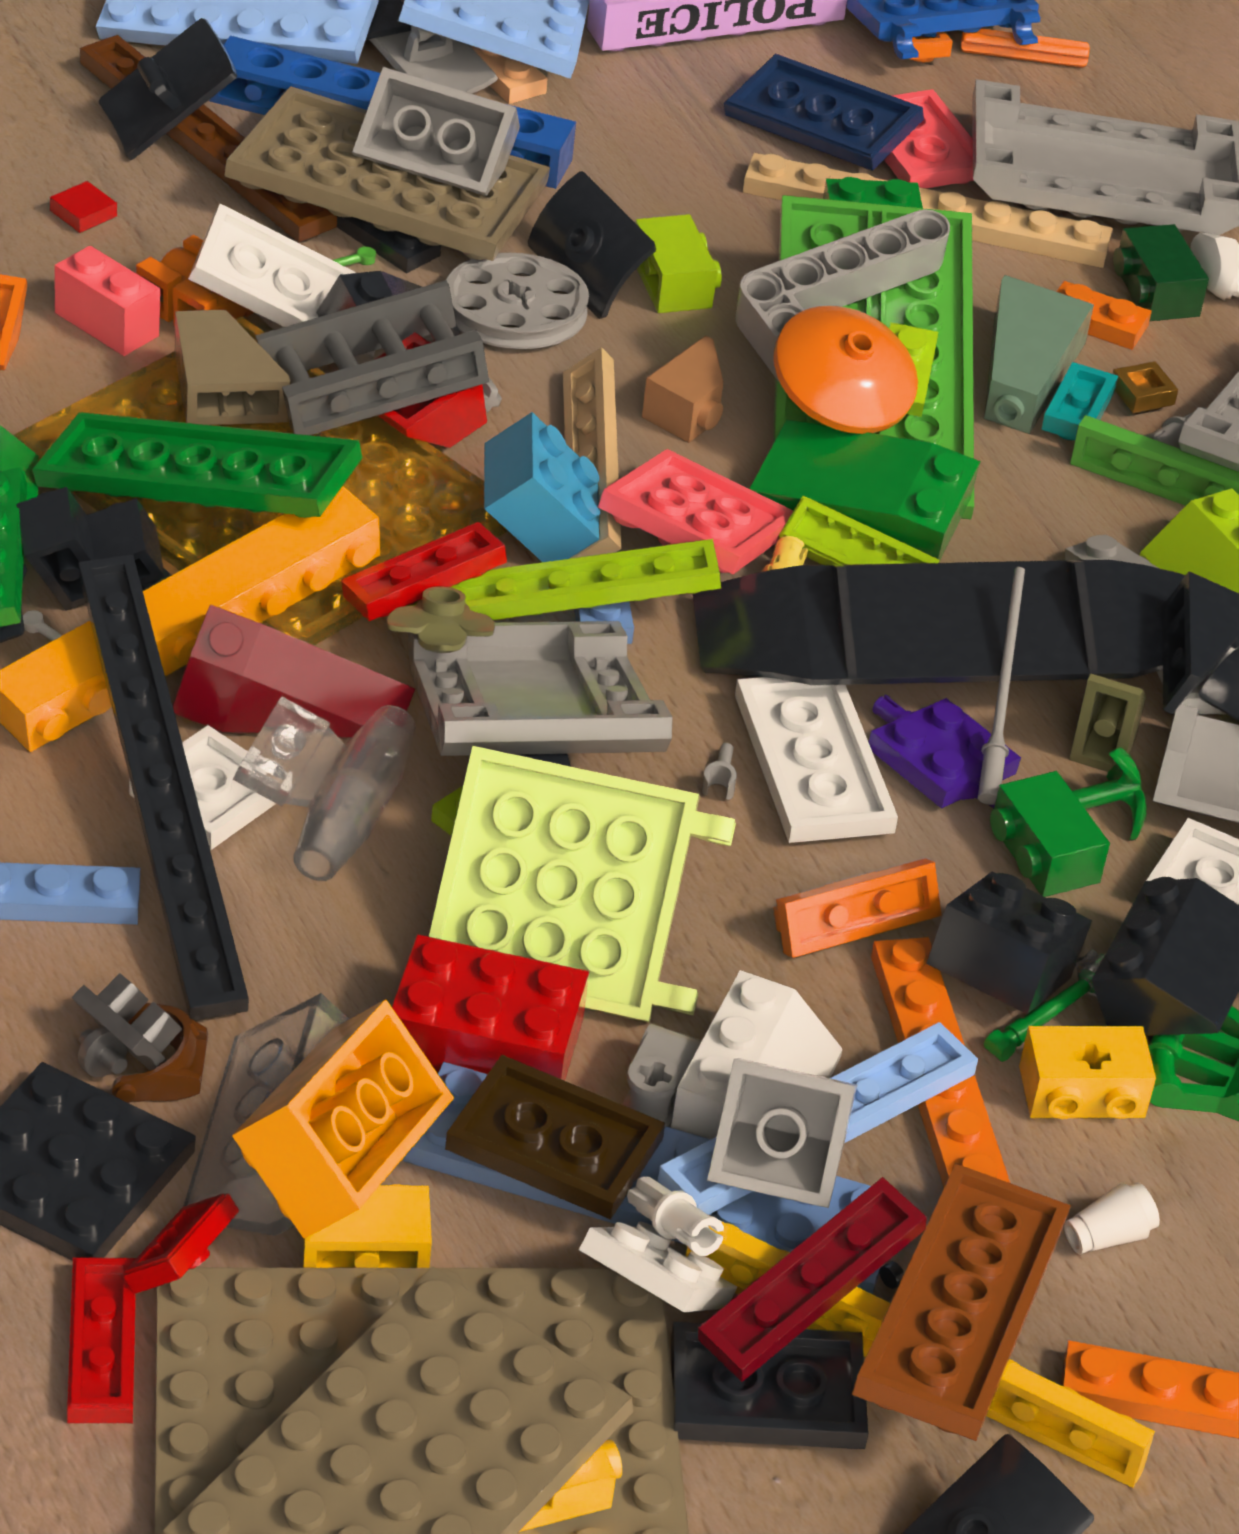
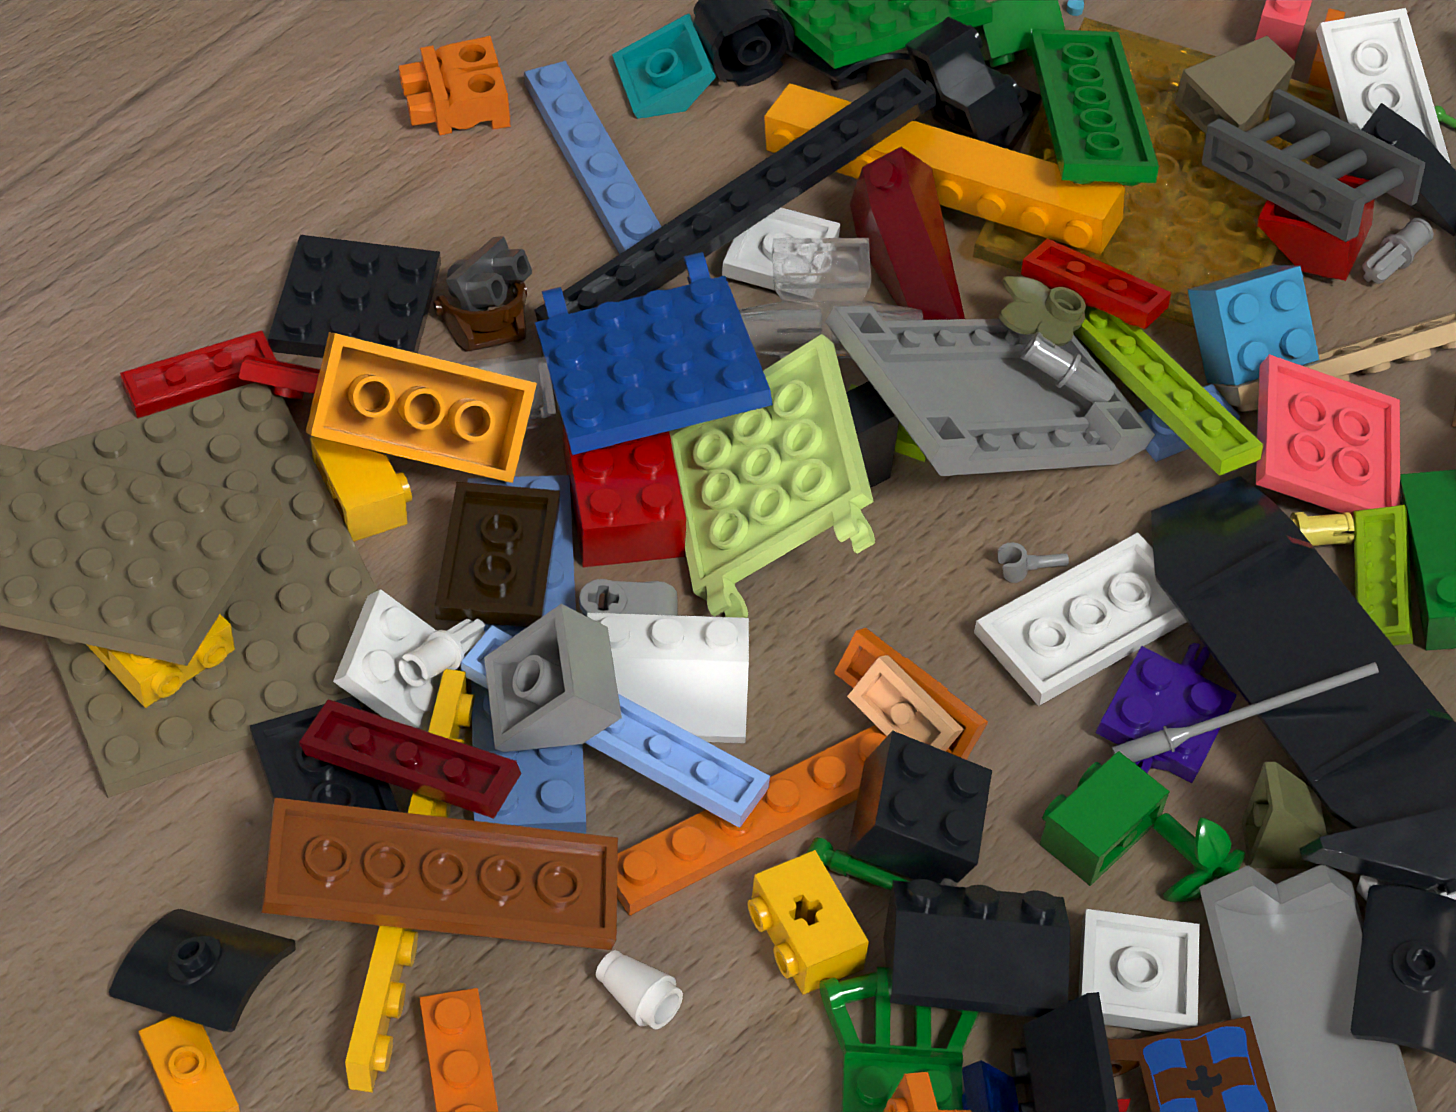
camera: 70 degrees right, 10 degrees up
(371, 913) = (651, 361): none -> blue plate
(524, 635) = (1067, 369): none -> light grey axle
(888, 910) = (901, 705): none -> light nougat plate

